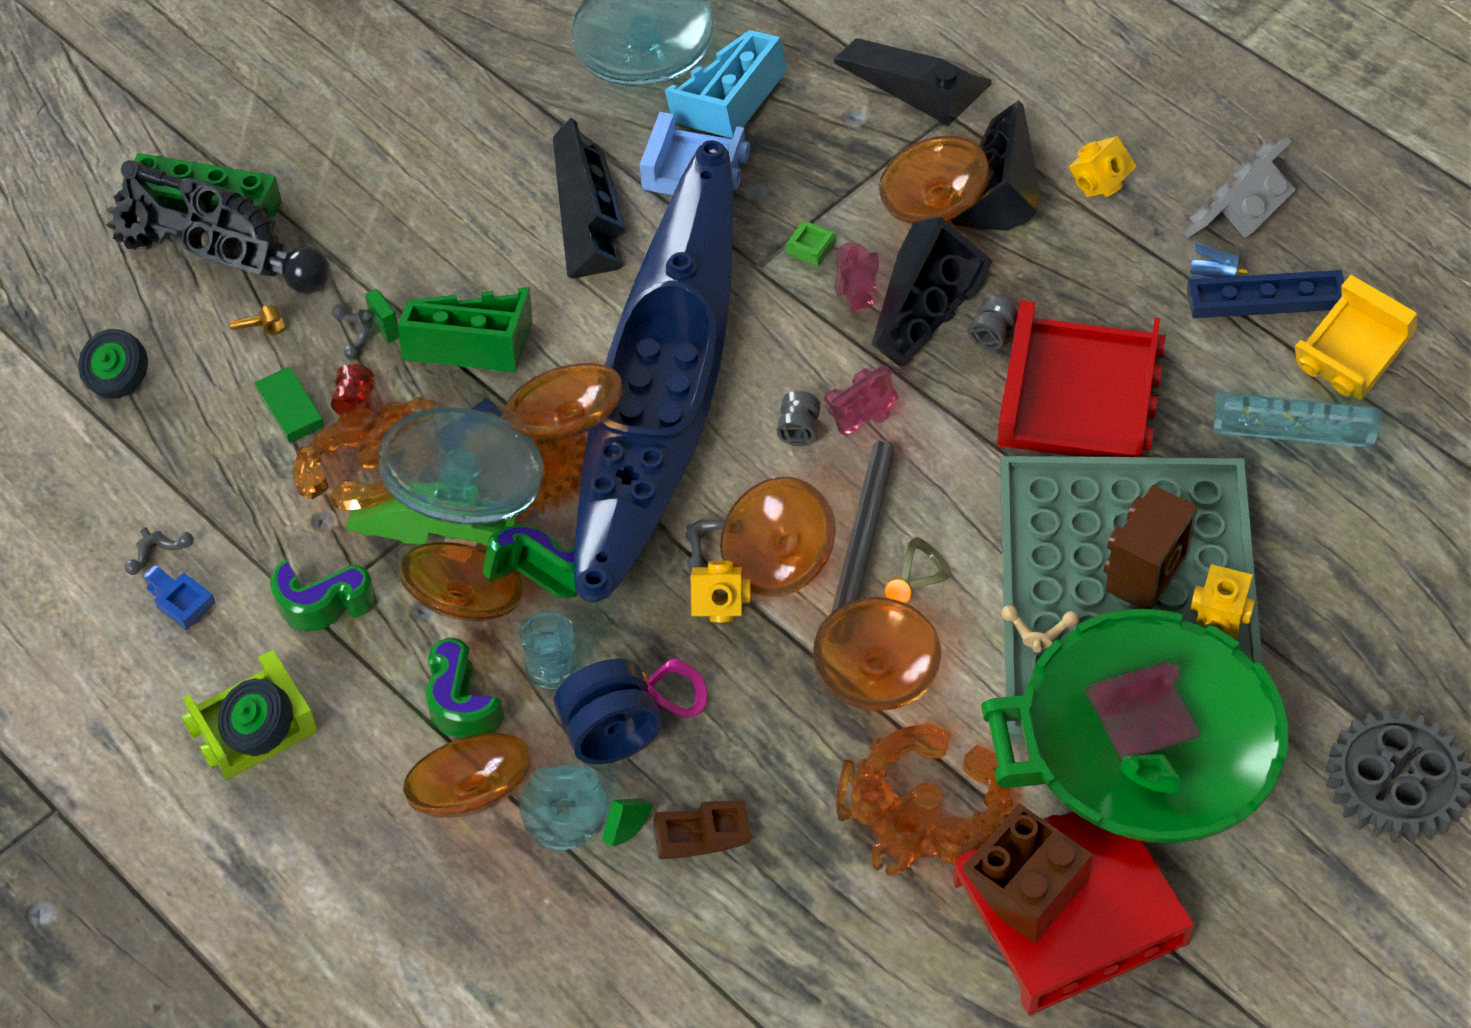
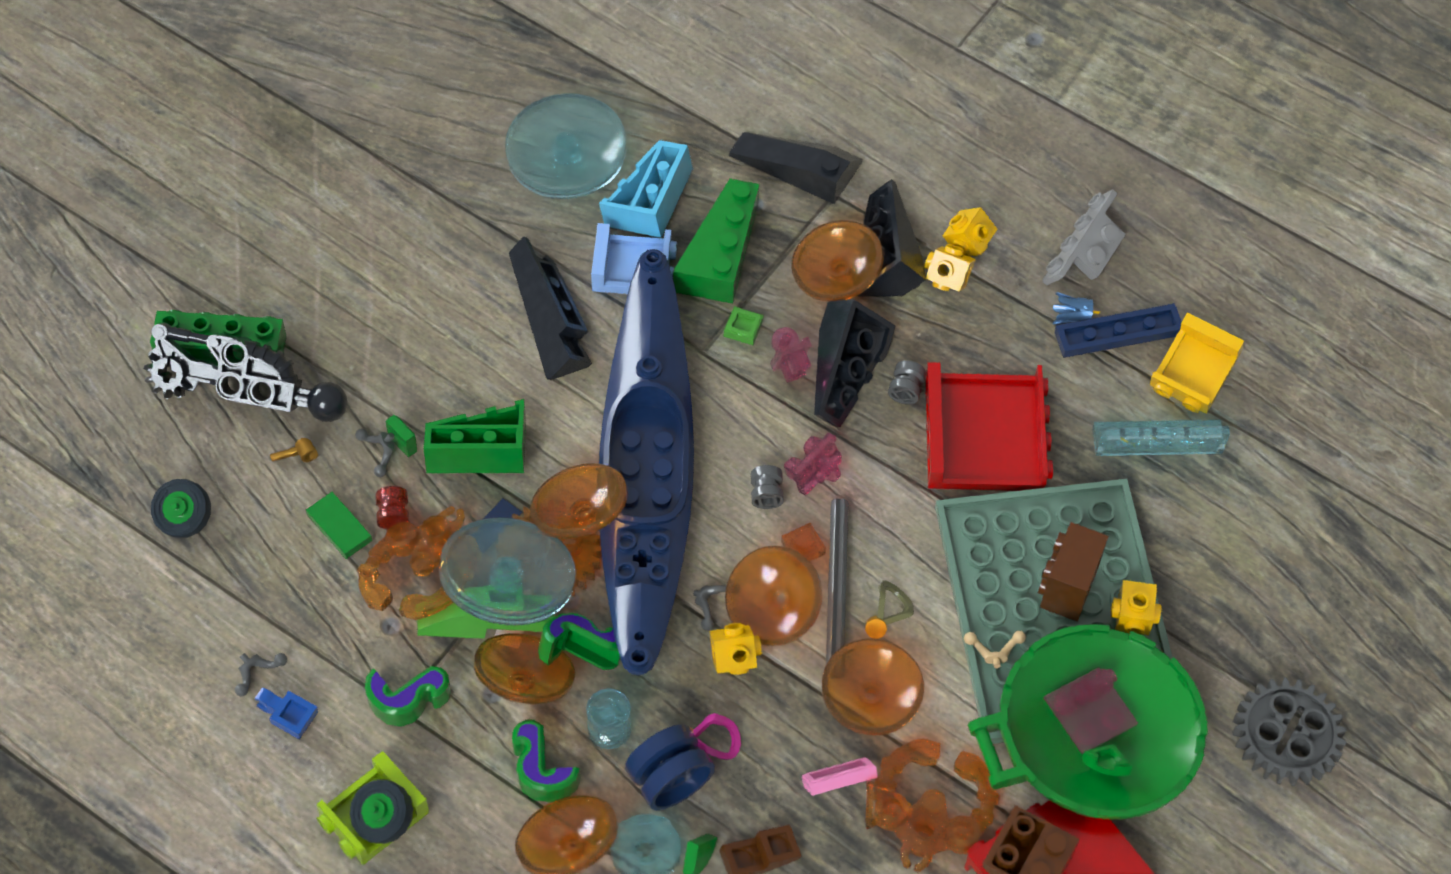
camera: 15 degrees left, 5 degrees up
(799, 153) = (718, 249): none -> green wedge
(816, 752) = (839, 776): none -> bright pink tile
(834, 486) = (804, 541): none -> clear orange plate
(1069, 203) = (959, 268): none -> yellow brick

